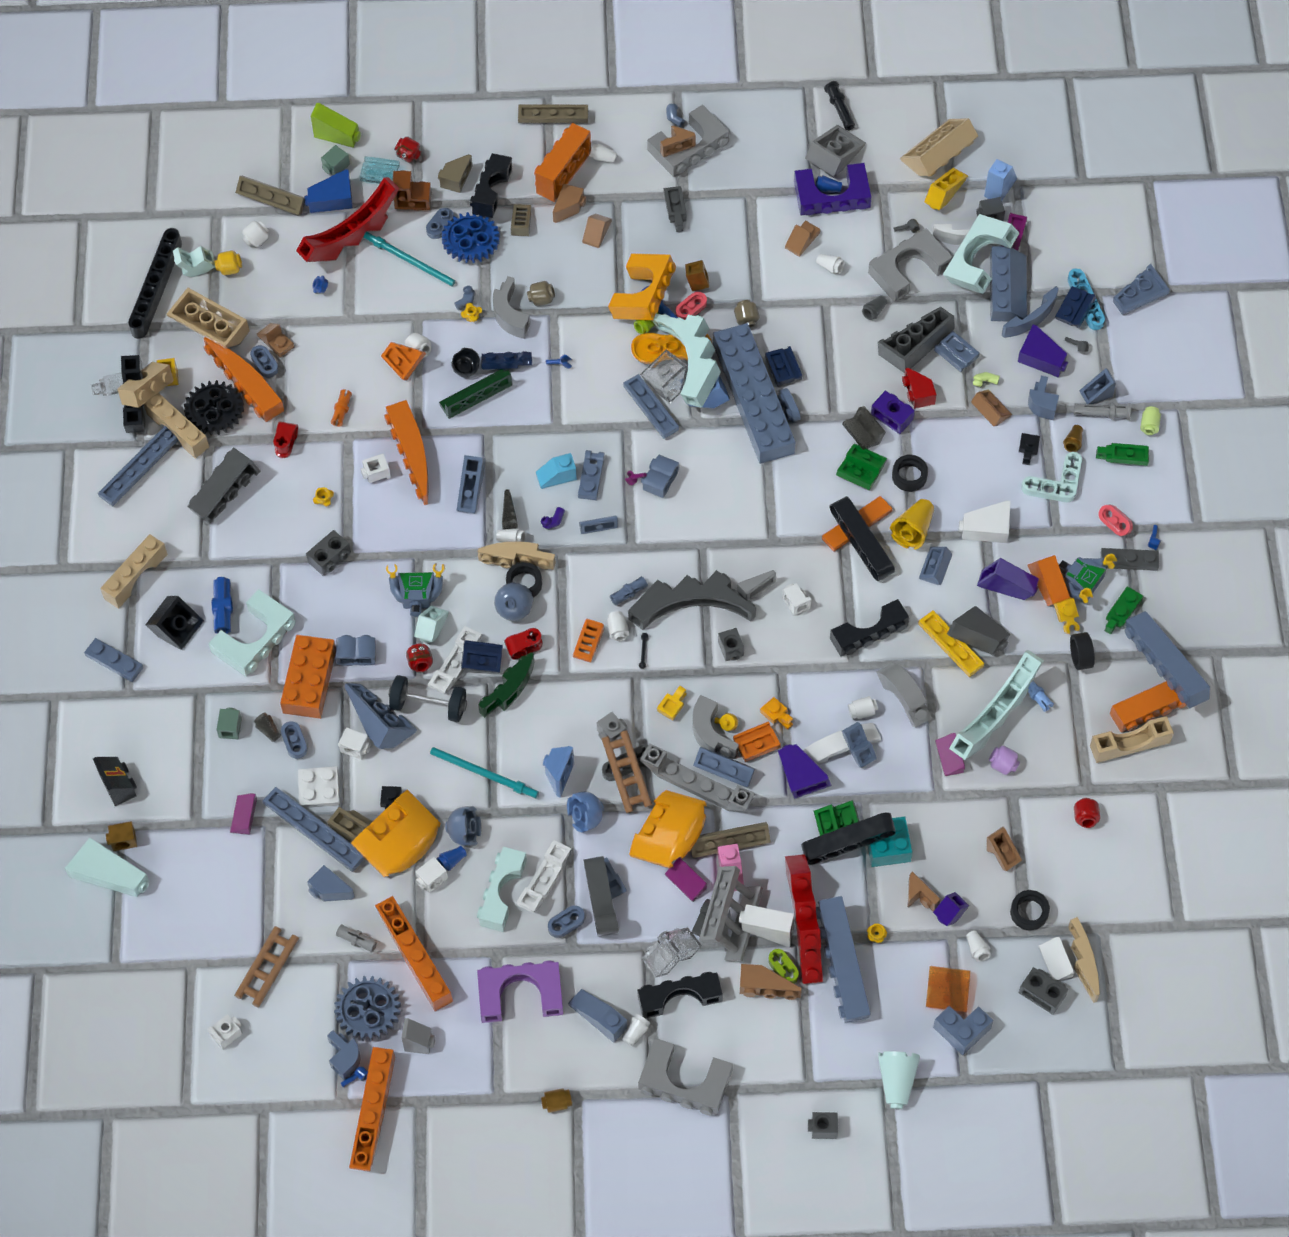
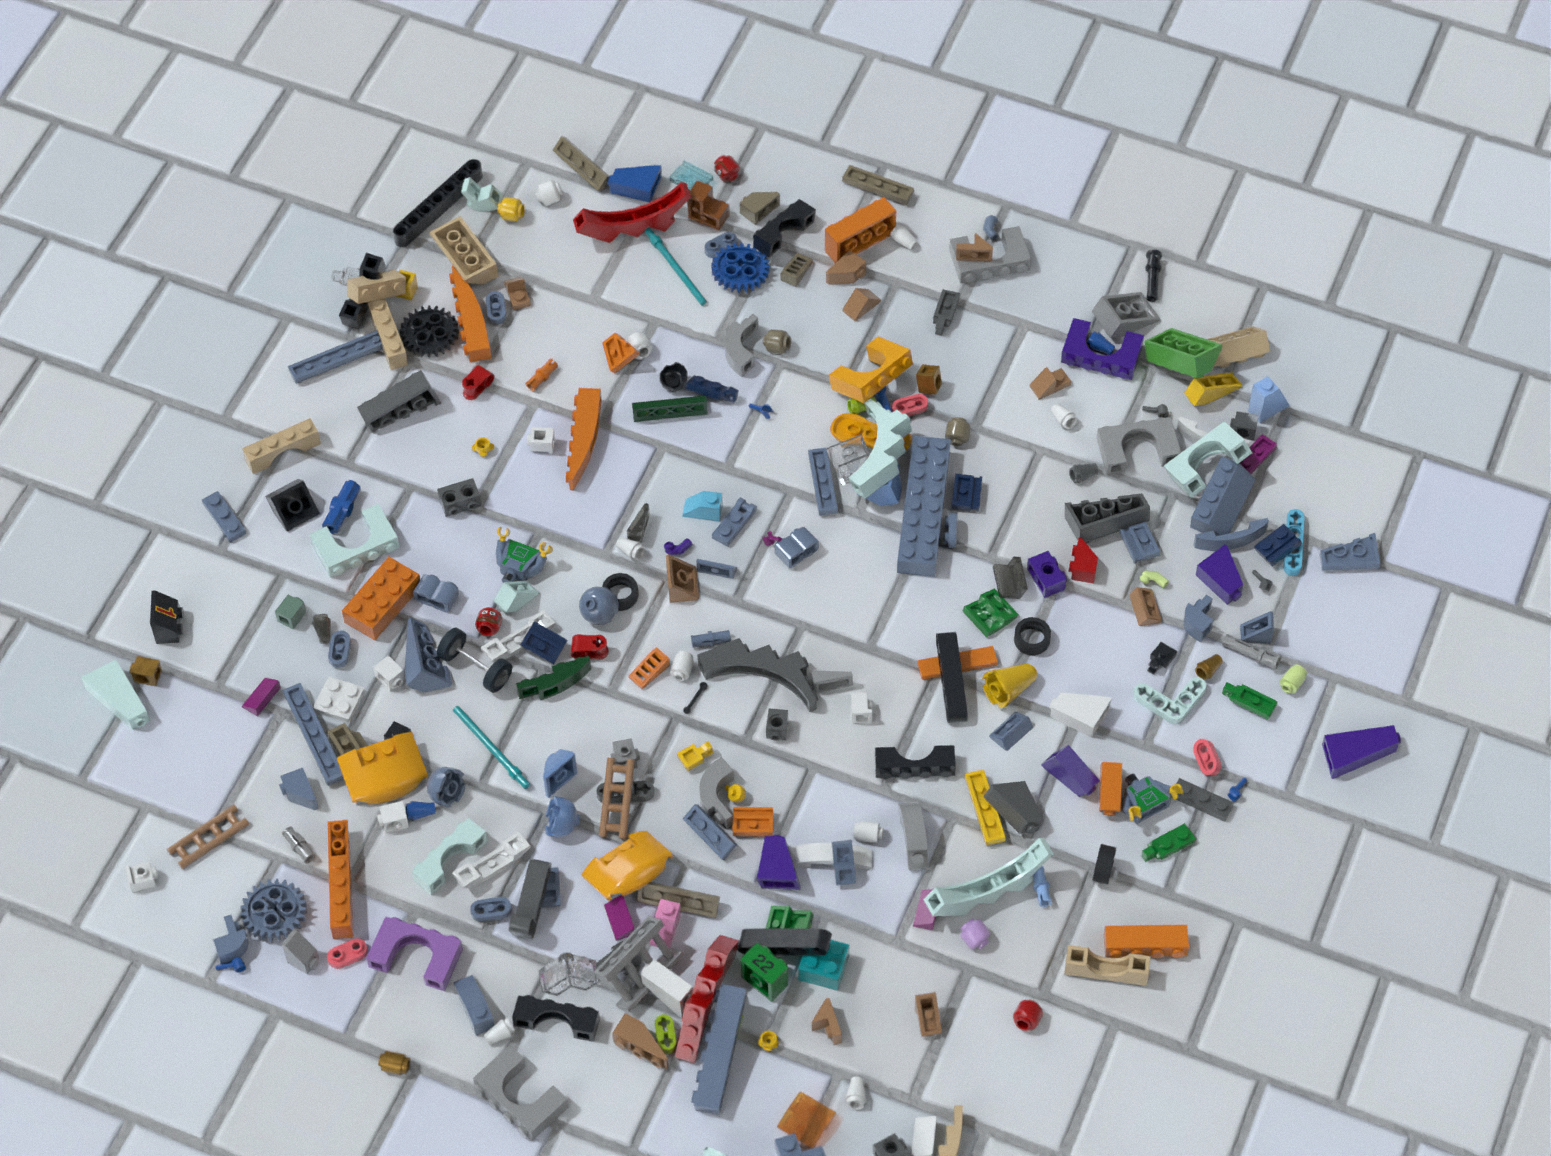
camera: 25 degrees right, 5 degrees down
(320, 284) = (582, 258): blue plate -> none
(334, 127) = (669, 123): lime slope -> none
(335, 160) = (655, 154): sand green brick -> none
(372, 1108) = (230, 997): orange slope -> none
(457, 1018) = (347, 953): none -> coral plate
(468, 297) = (708, 321): sand blue arm -> none
(470, 483) = (620, 485): sand blue slope -> none
(471, 317) = (705, 339): yellow plate -> none
(509, 553) = (624, 562): tan slope -> none
(573, 548) = (681, 580): none -> medium nougat slope
(695, 783) = (674, 833): light grey slope -> none
(776, 711) = (786, 802): light orange plate -> none
(844, 872) = (764, 971): none -> green brick
(908, 165) = (1182, 352): none -> bright green slope
(950, 909) = (847, 1047): dark purple brick -> none
(1037, 897) = (926, 1066): black tyre -> none
(1066, 612) = (1110, 822): yellow plate -> none
(1167, 660) = (1180, 905): sand blue brick -> none
(1235, 460) = (1358, 748): none -> dark purple slope

